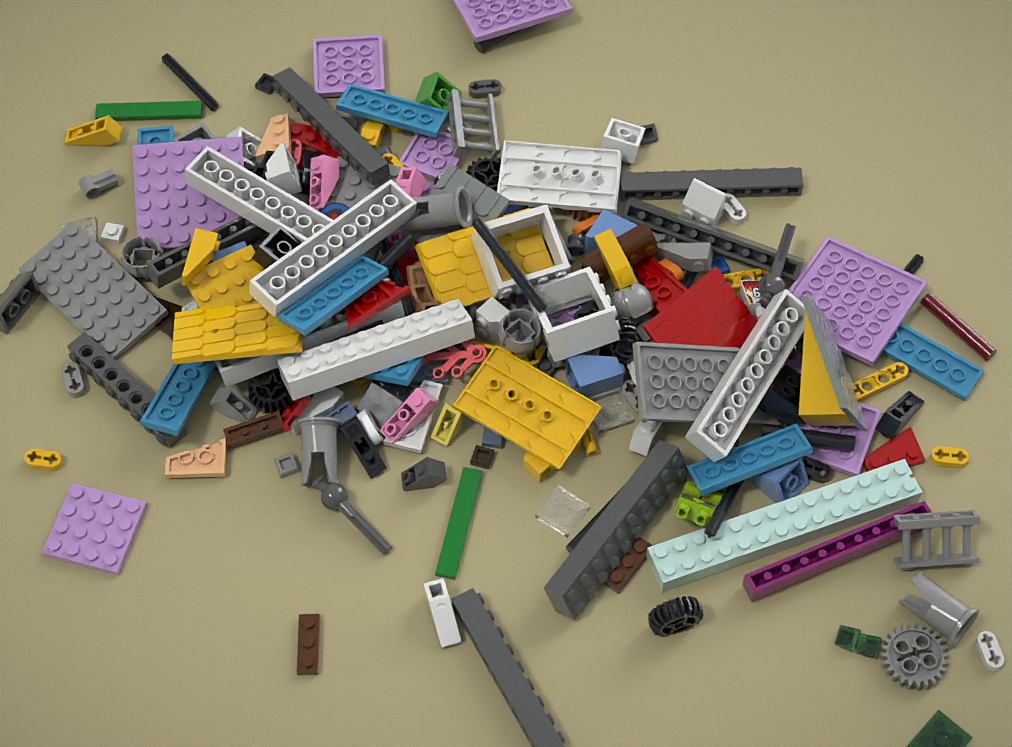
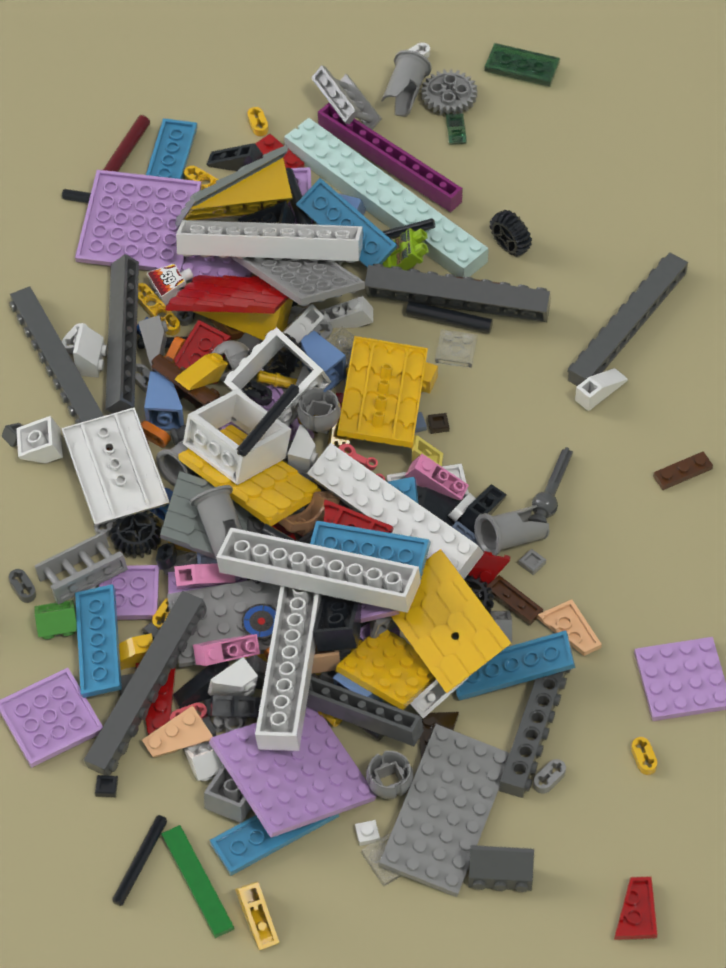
camera: 115 degrees left, 5 degrees down
(94, 185) = (321, 878): light grey piece -> none
(200, 253) = (381, 690): yellow slope -> none
(424, 475) = (484, 452): dark grey slope -> none
(458, 523) = (510, 413): green tile -> none
(772, 283) = (163, 264): dark grey piece -> none

